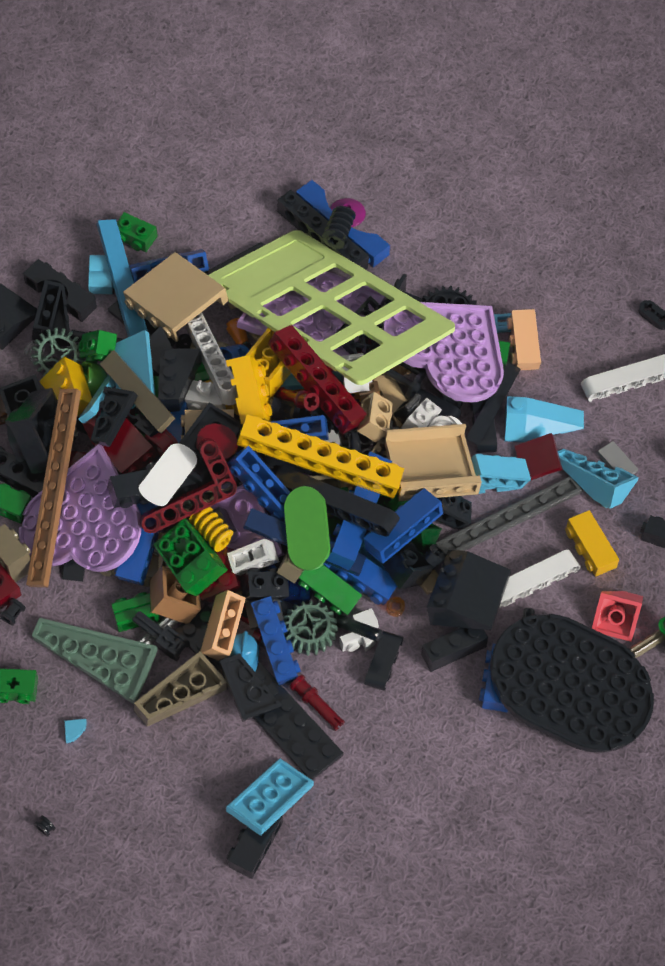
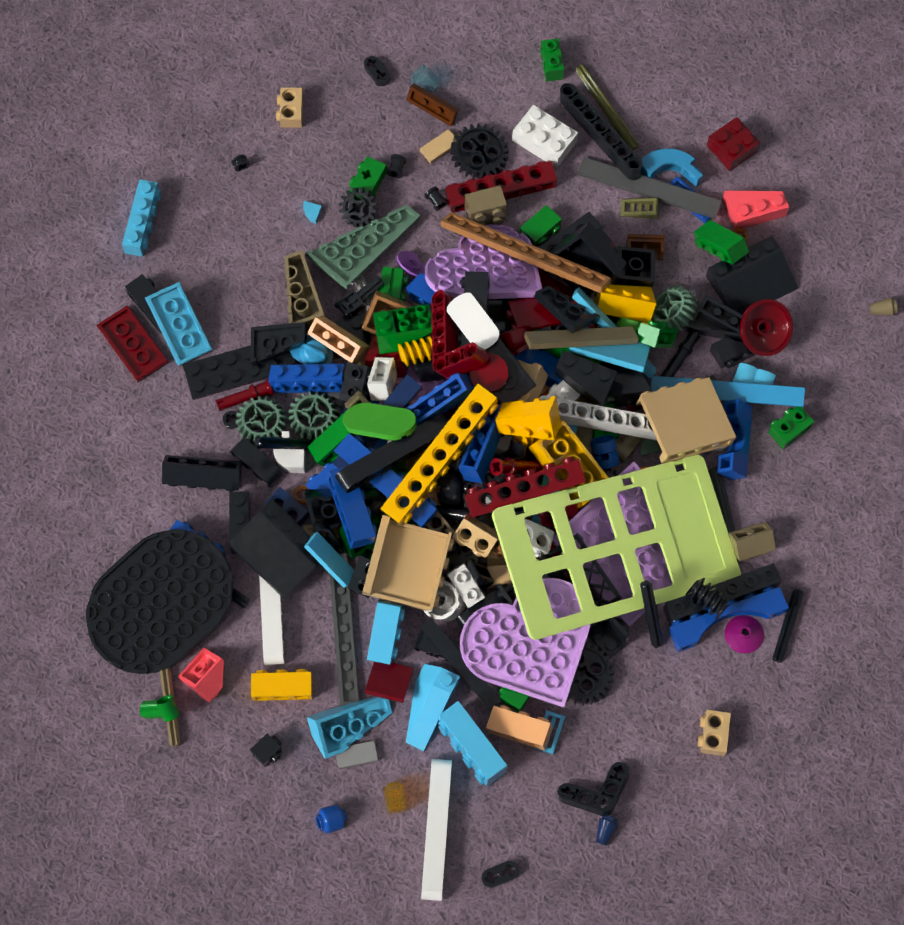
camera: 115 degrees right, 10 degrees up
(49, 265) = (775, 331): none -> dark red dish
(54, 678) = (363, 212): none -> black gear
(101, 601) = (410, 263): none -> medium lavender dish
(158, 898) = (141, 218): none -> medium azure brick
(261, 224) = (752, 541): none -> dark tan brick
(308, 844) = (132, 343): none -> dark red tile
(326, 183) = (787, 626): none -> black axle
(346, 660) = (268, 417): none -> sand green gear
(348, 698) = (230, 425): none -> black bush
(373, 267) = (651, 613): none -> black axle
(417, 610) = (290, 505): none -> dark blue brick
(421, 702) = (201, 473): none -> black brick
(448, 202) = (719, 733): none -> tan brick
(455, 541) = (329, 559): none -> medium azure tile
(548, 259) = (602, 797): none -> black beam
(562, 365) = (472, 743): none -> medium azure brick
(572, 252) = (606, 829): none -> dark blue cone
(639, 412) = (395, 797): none -> clear yellow brick

